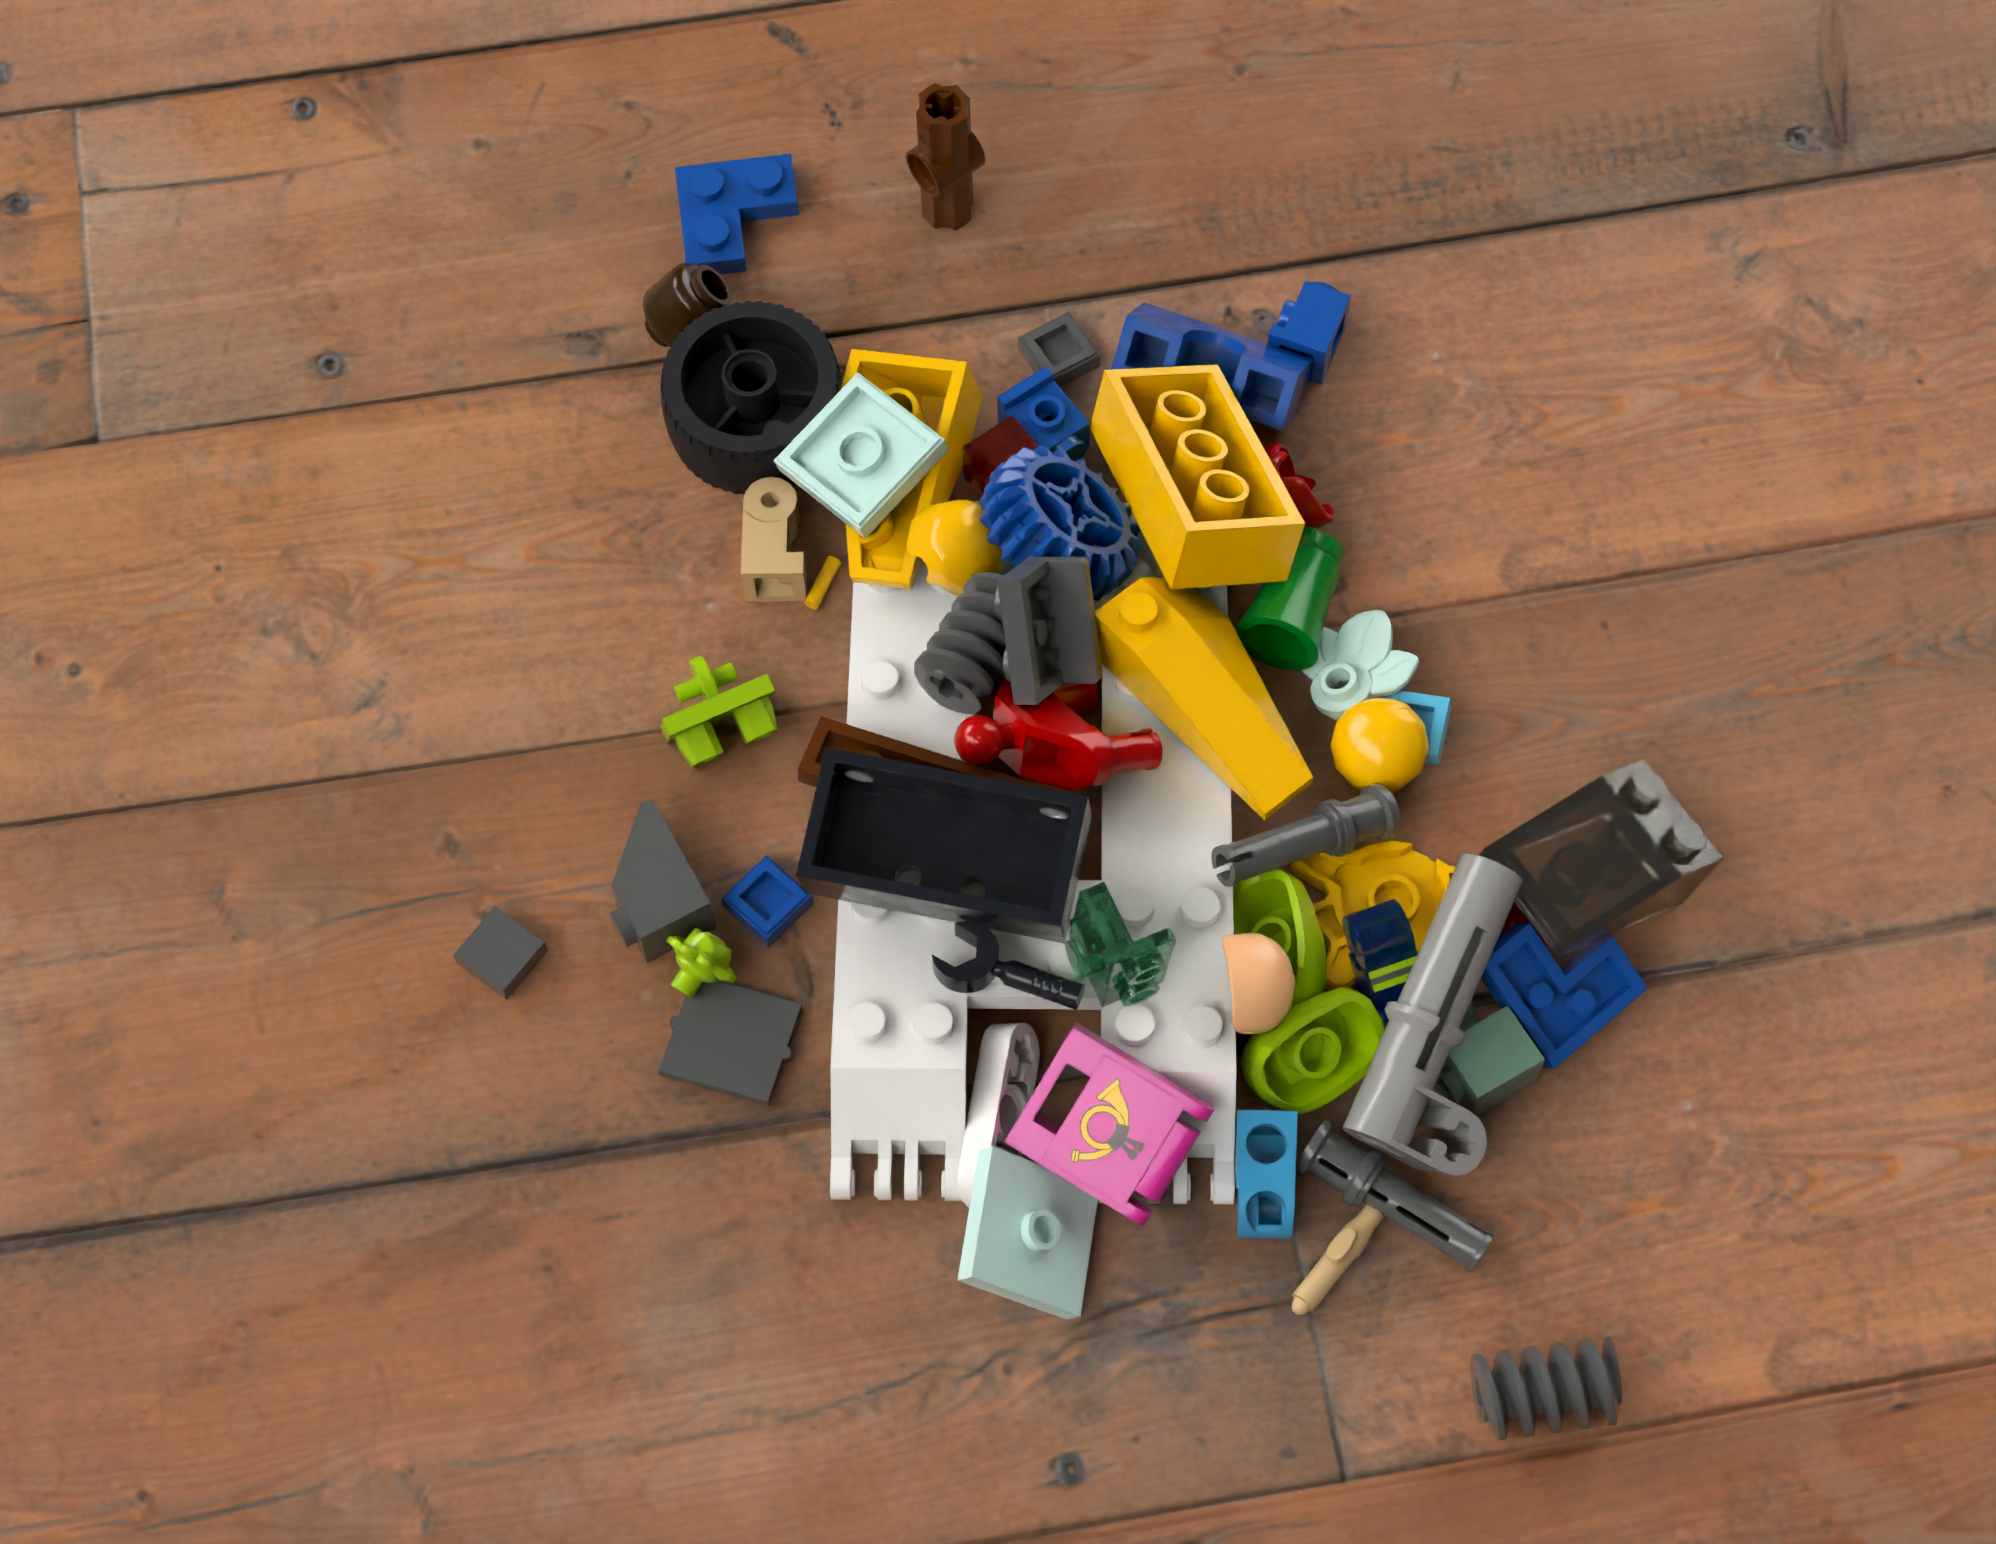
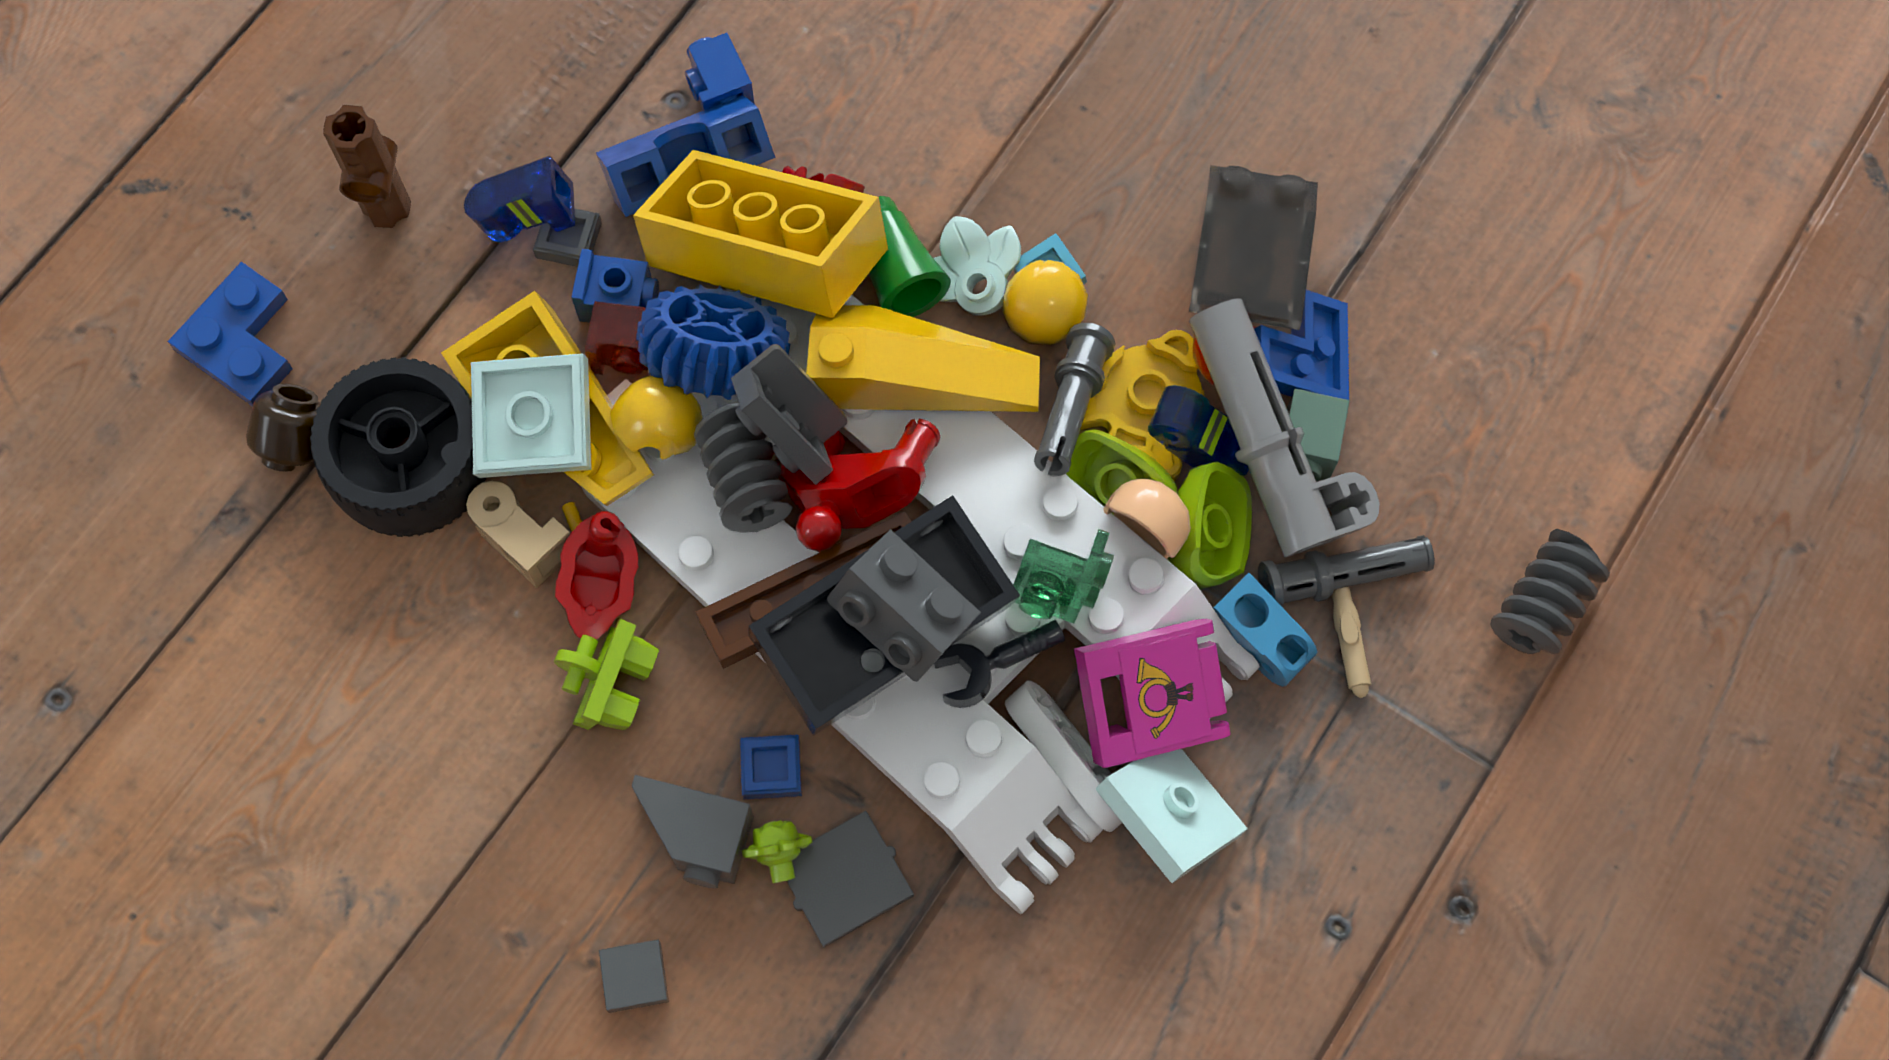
camera: 50 degrees left, 5 degrees up
(792, 627) = (597, 574): none -> red arm
(954, 839) = (902, 605): none -> dark grey bracket
(1047, 290) = (522, 200): none -> clear blue leg

